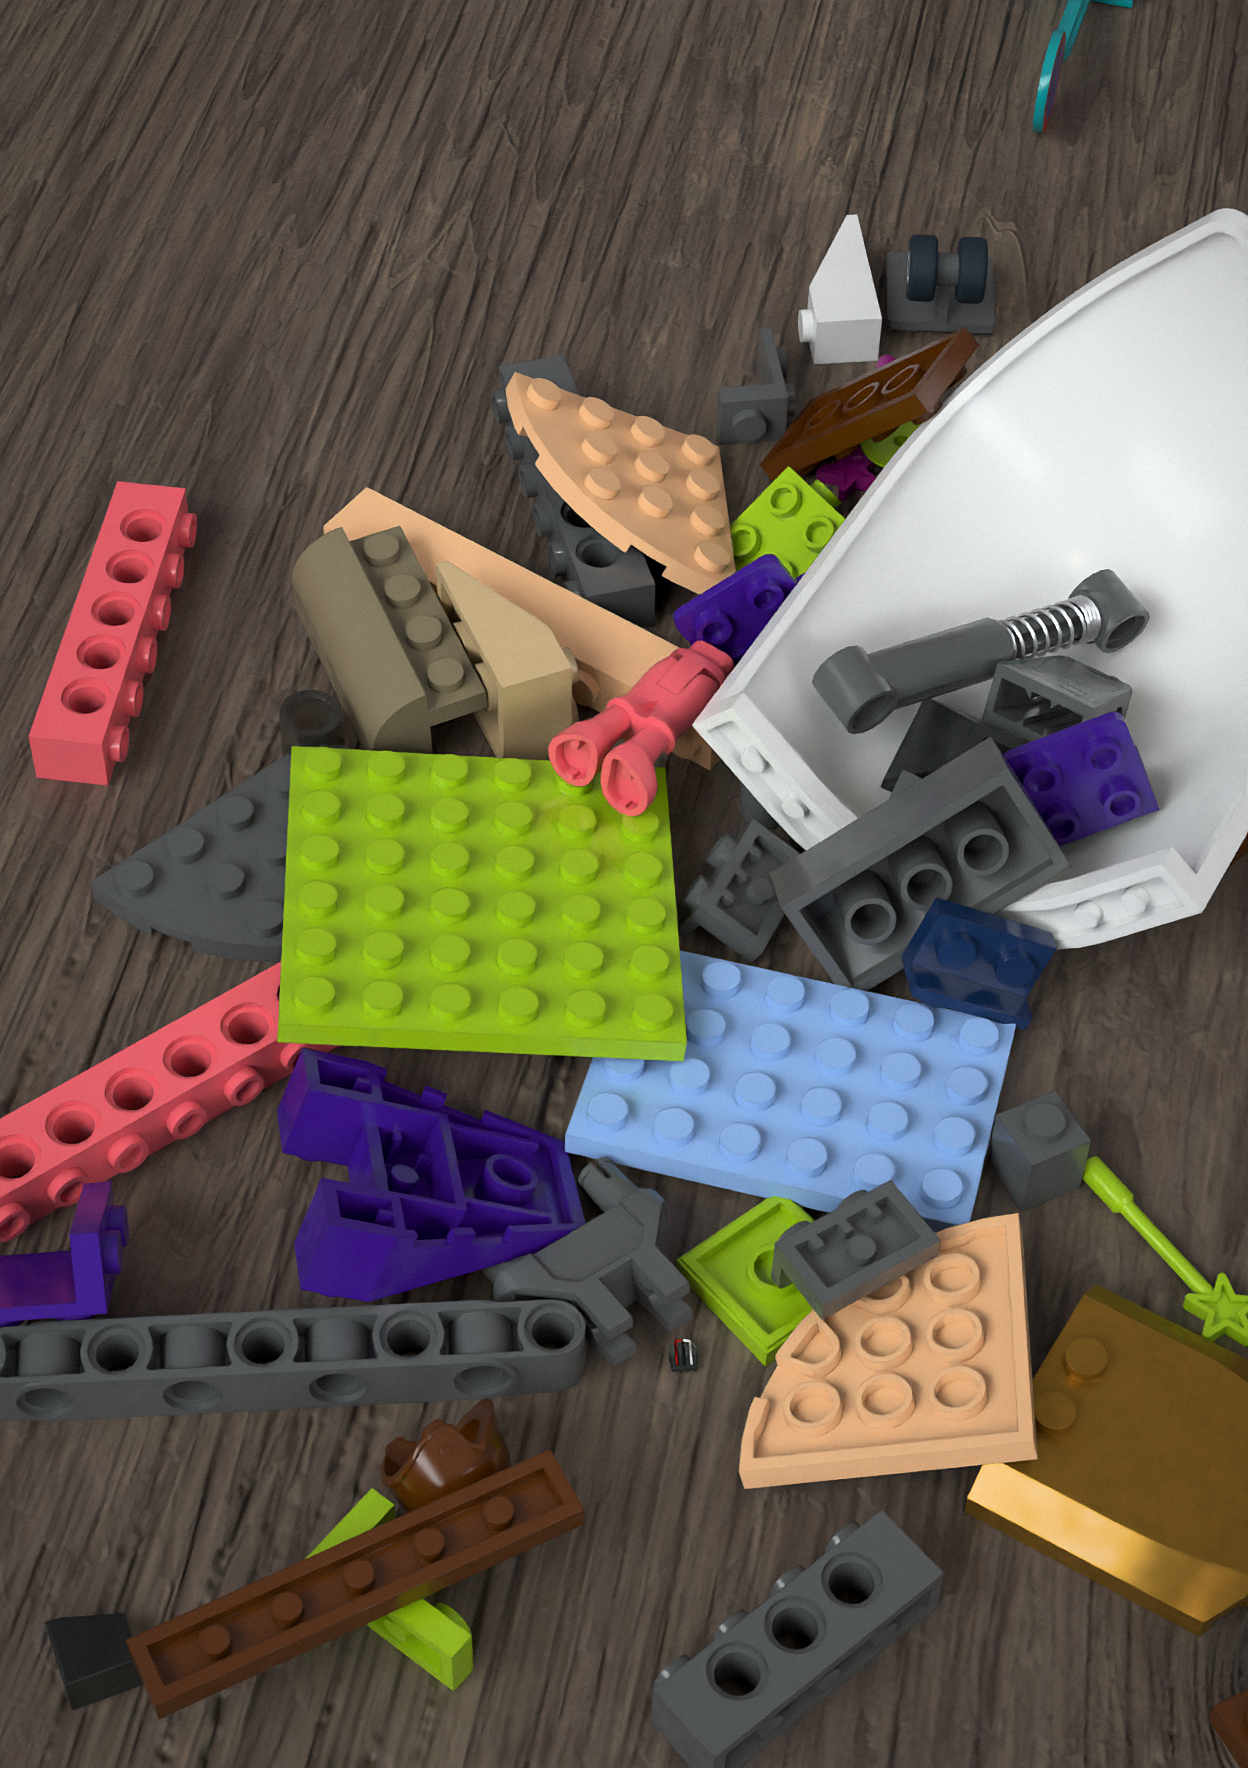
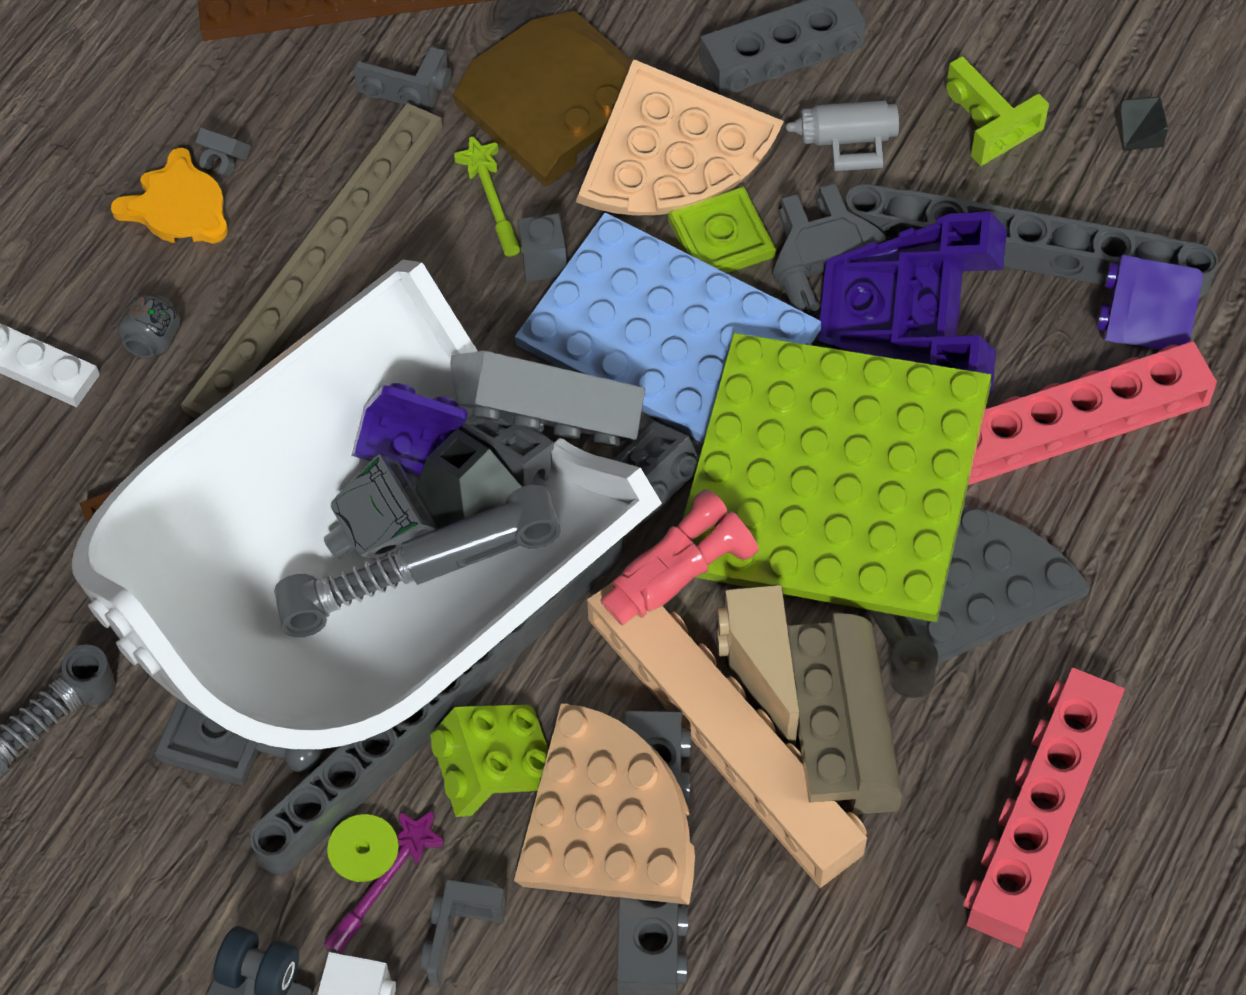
camera: 160 degrees left, 10 degrees up
(354, 1583) = (1004, 83): reddish brown plate -> none
(445, 1458) = (941, 154): reddish brown helmet -> none
(632, 1496) = (849, 125): none -> light grey piece
(737, 607) = (563, 644): dark purple bracket -> none
(853, 1249) = (681, 199): dark grey bracket -> none
(872, 405) = (396, 814): reddish brown plate -> none
(976, 962) = (546, 350): dark blue bracket -> none

